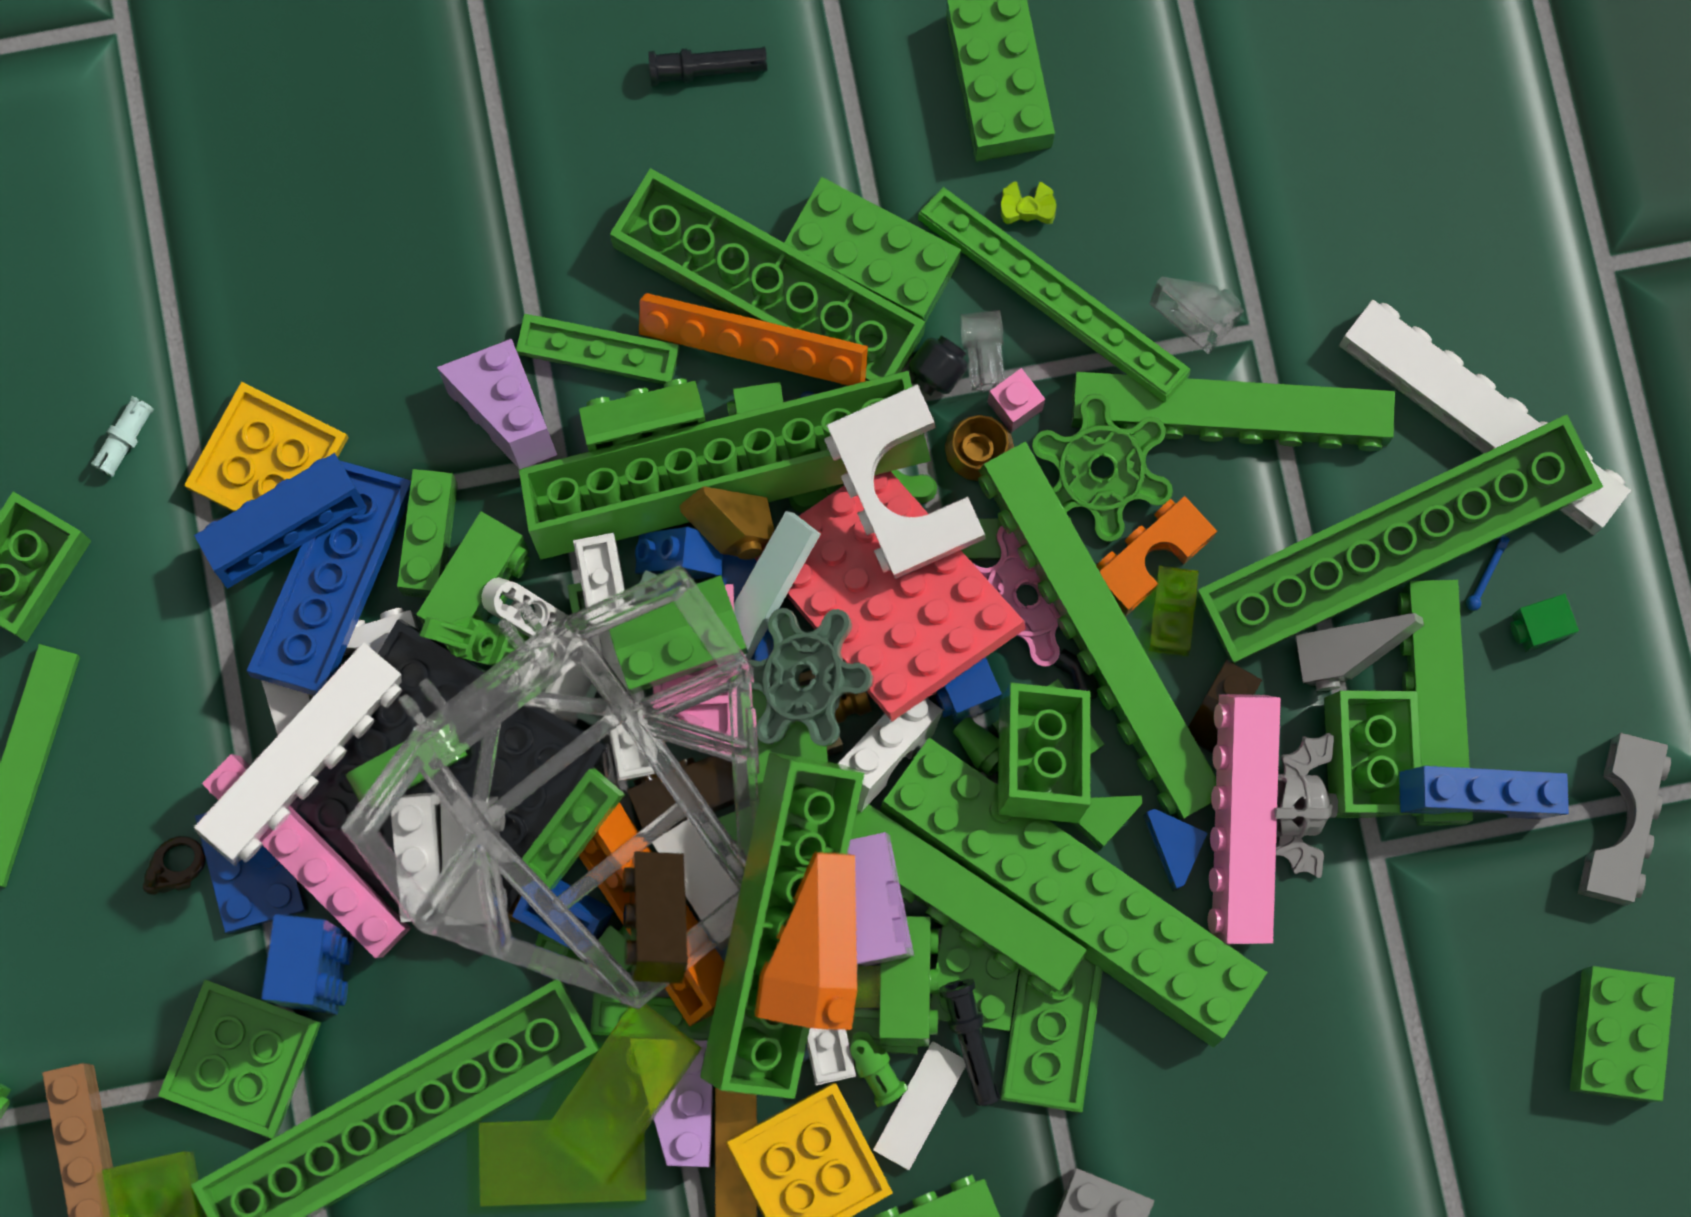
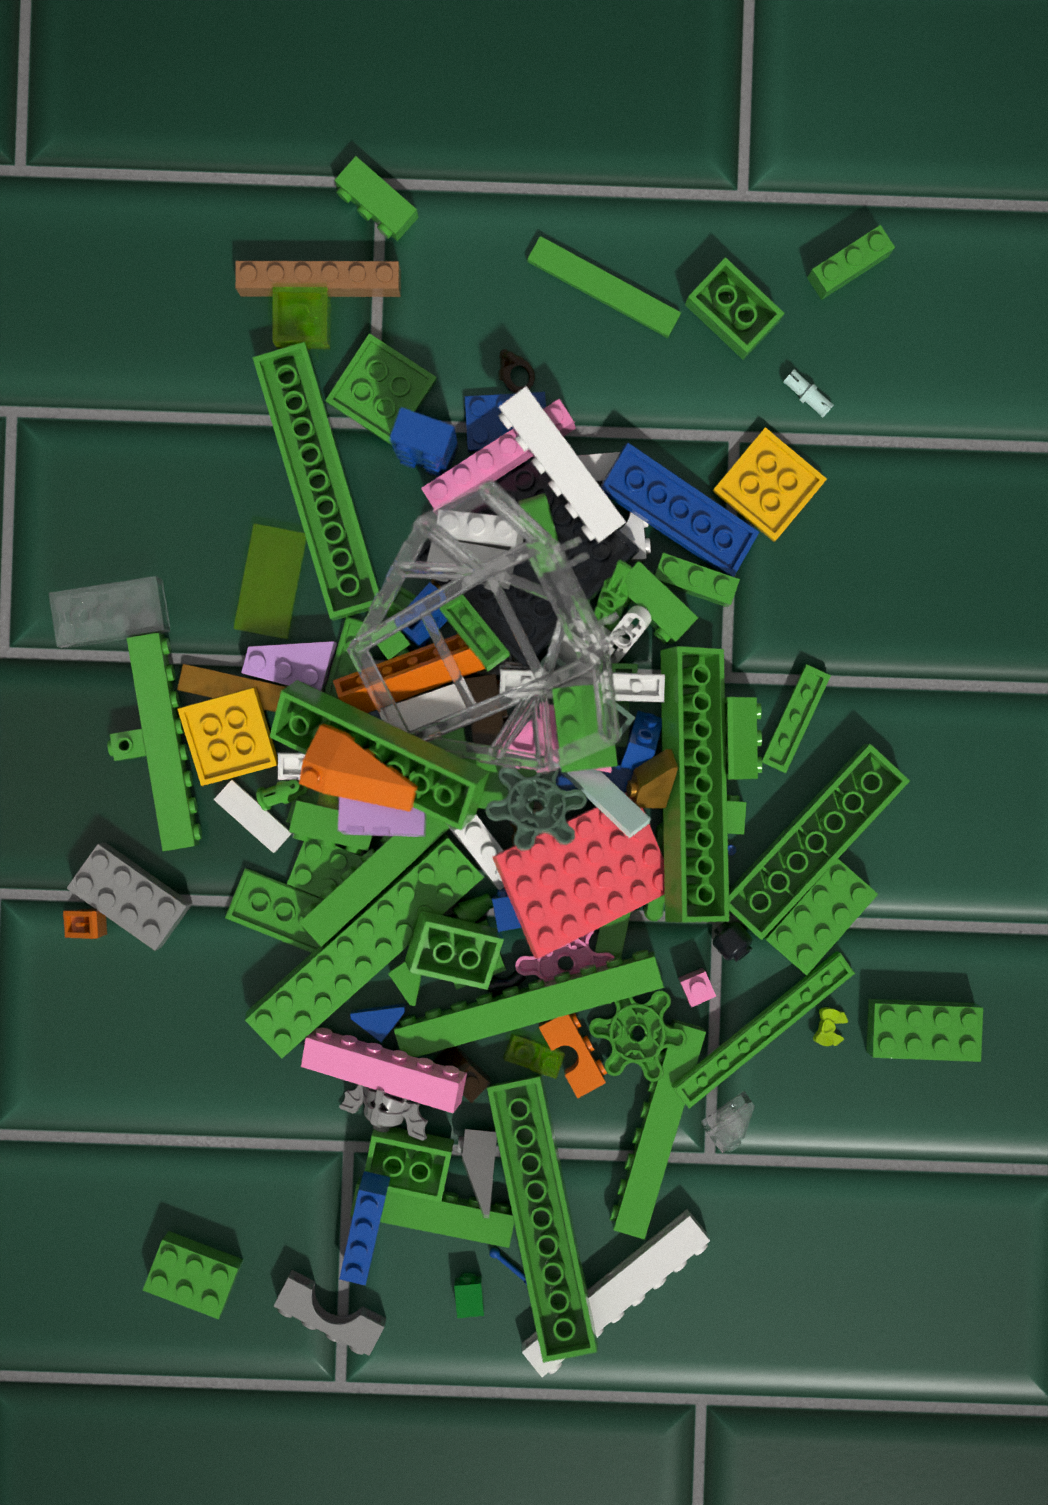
camera: 100 degrees right, 10 degrees up
(280, 520) = (725, 485): blue brick -> none
(501, 401) = (772, 648): lavender wedge -> none
(622, 1091) = (300, 628): clear neon green tile -> none
(656, 917) = (401, 674): dark brown brick -> none
(689, 65) = (978, 822): black pin -> none
(752, 340) = (776, 822): orange plate -> none
(861, 443) = (682, 878): white arch -> none
(967, 454) = (667, 947): pearl gold hat -> none
(967, 1024) = (293, 858): black pin -> none
(983, 340) = (744, 975): clear piece -> none

